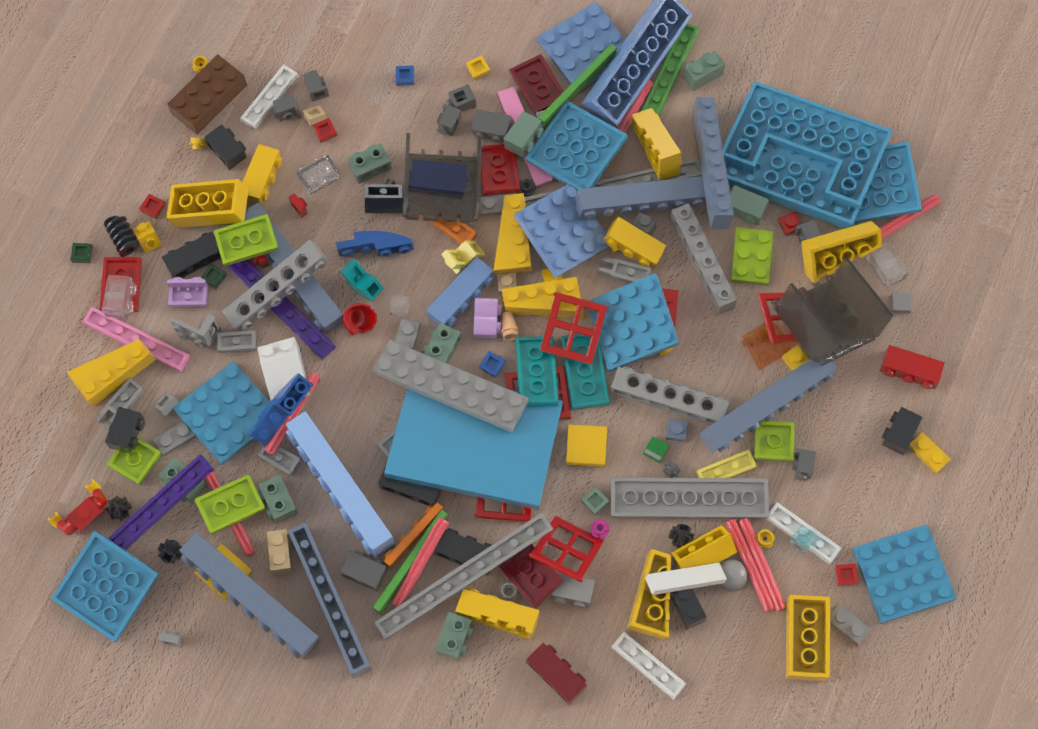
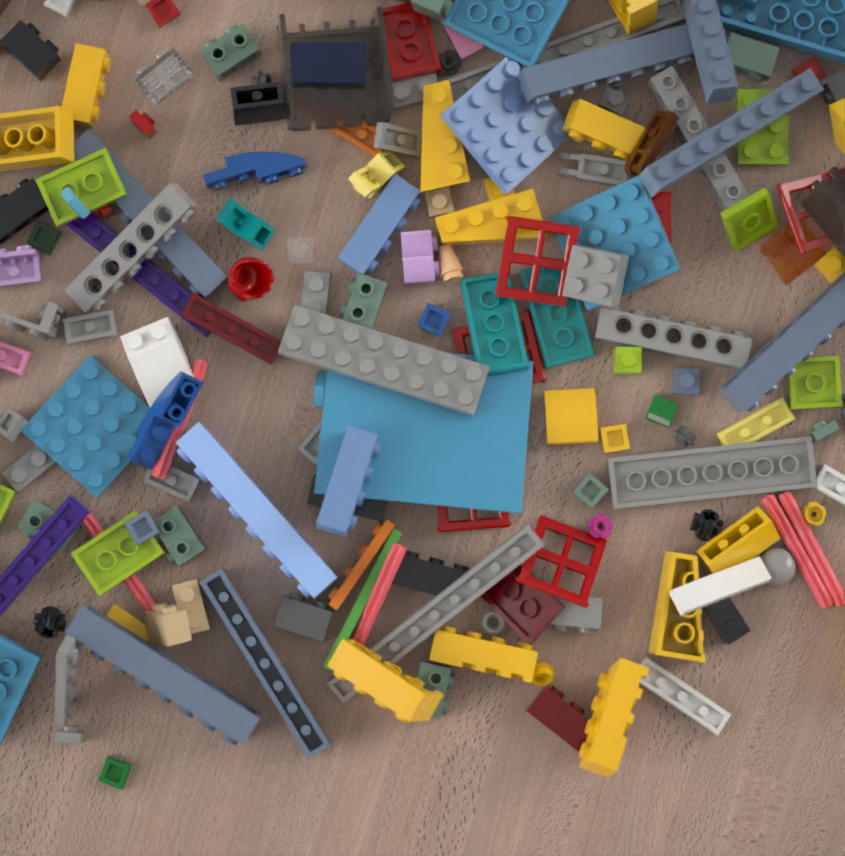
camera: 10 degrees left, 15 degrees up
(174, 589) = (65, 680): none -> light grey plate
(201, 673) = (115, 772): none -> green tile
(239, 247) = (75, 202): none -> medium azure tile
(251, 485) = (142, 528): none -> sand blue plate
(259, 559) = (167, 625): none -> tan brick
(340, 352) = (231, 328): none -> dark red plate
(398, 405) = (319, 388): none -> medium azure tile
(410, 465) = (347, 481): none -> medium blue brick
(418, 620) = (384, 682): none -> yellow wedge
(481, 234) = (398, 139): none -> light grey plate
(542, 638) = (543, 674): none -> yellow plate
(591, 668) = (611, 717): none -> yellow wedge
(615, 341) = (595, 275): none -> light grey brick
(618, 464) = (614, 438): none -> yellow plate
(633, 408) = (627, 361): none -> lime brick
(667, 254) = (651, 142): none -> reddish brown plate
(725, 251) = (730, 132): none -> sand blue brick
(735, 317) = (749, 219): none -> lime plate
(777, 475) = (823, 429): none -> sand green plate

